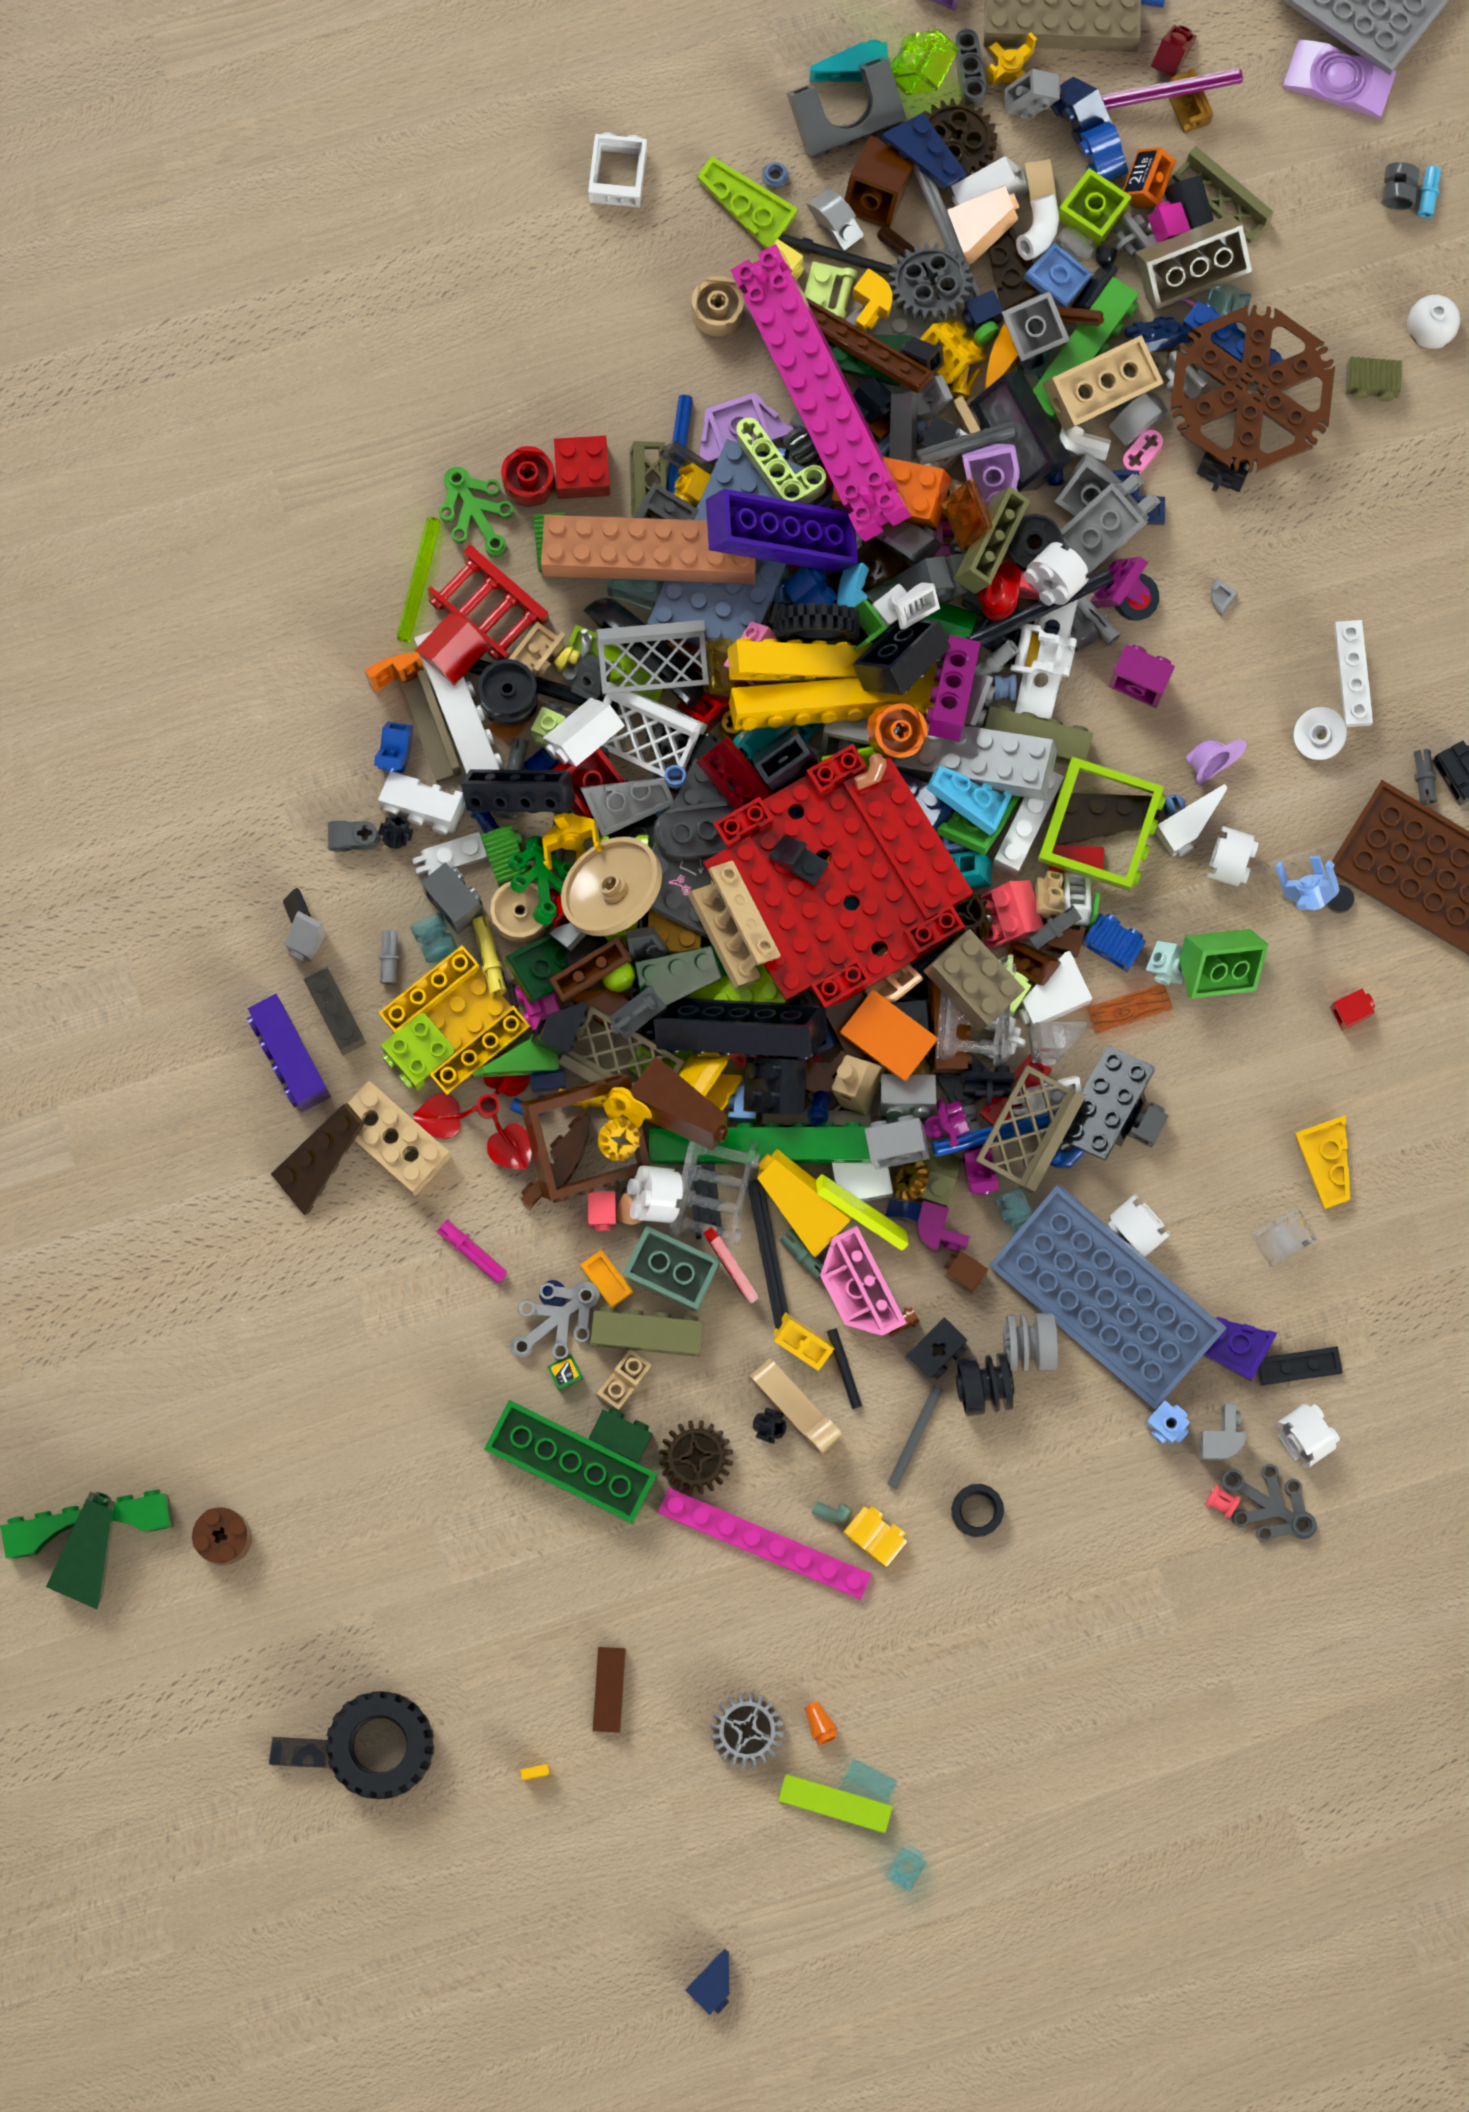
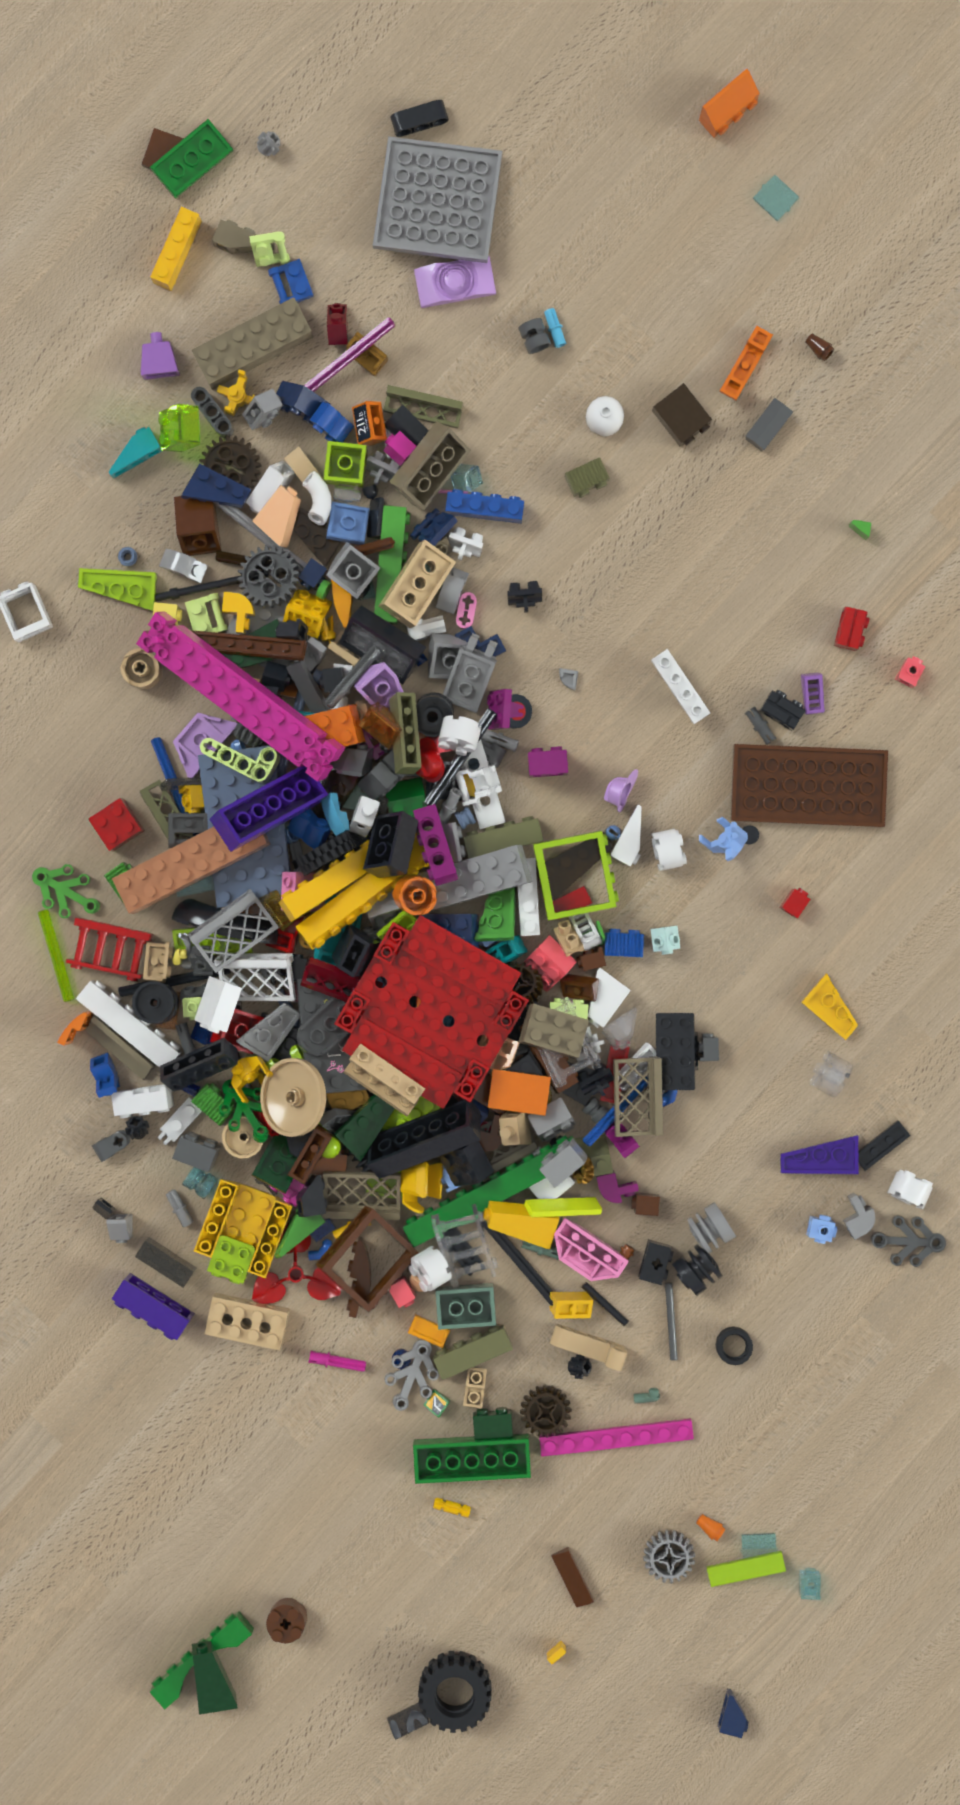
camera: 30 degrees left, 10 degrees up
(313, 1162) = (209, 1361): dark brown wing -> none
(453, 648) = (103, 993): red slope -> none
(491, 964) = (240, 1172): light yellow pin -> none
(509, 1514) = (451, 1507): none -> yellow axle
(515, 470) = (76, 846): red brick -> none
(568, 935) = (282, 1140): light grey tile -> none
(615, 1128) = (383, 1246): yellow gear -> none
(622, 1102) = (378, 1232): yellow plate -> none
(636, 1012) = (354, 1165): dark grey hinge -> none
(674, 773) = (290, 996): medium blue hinge -> none
(680, 1106) = (412, 1213): reddish brown slope -> none
(730, 1265) = (501, 1285): tile -> none
(798, 860) = (401, 1015): black slope -> none
(818, 1112) = (502, 1164): clear blue pin -> none
(871, 621) = (359, 830): bright green bracket -> none
(875, 772) = (417, 934): nougat arm -> none
(875, 1536) = (681, 1397): yellow brick -> none
(881, 111) = (171, 475): dark grey arch -> none
(903, 1210) = (588, 1189): clear blue piece -> none
(921, 593) = (385, 798): white slope -> none
(950, 1121) = (585, 1123): magenta hips -> none
(973, 801) = (487, 910): medium azure wing -> none
(1015, 1208) = (655, 1148): clear light blue brick -> none
(1055, 927) = (583, 959): dark grey pin -> none
(1107, 1296) = (742, 1173): sand blue plate -> none
(1129, 1008) = (656, 979): clear orange tile -> none
(1138, 1225) = (737, 1118): white brick -> none
(1222, 962) = (699, 922): bright green slope -> none
(1222, 1501) = (885, 1259): coral bush -> none
(1248, 407) = (526, 518): reddish brown plate -> none
(1309, 727) = (671, 739): white dish -> none

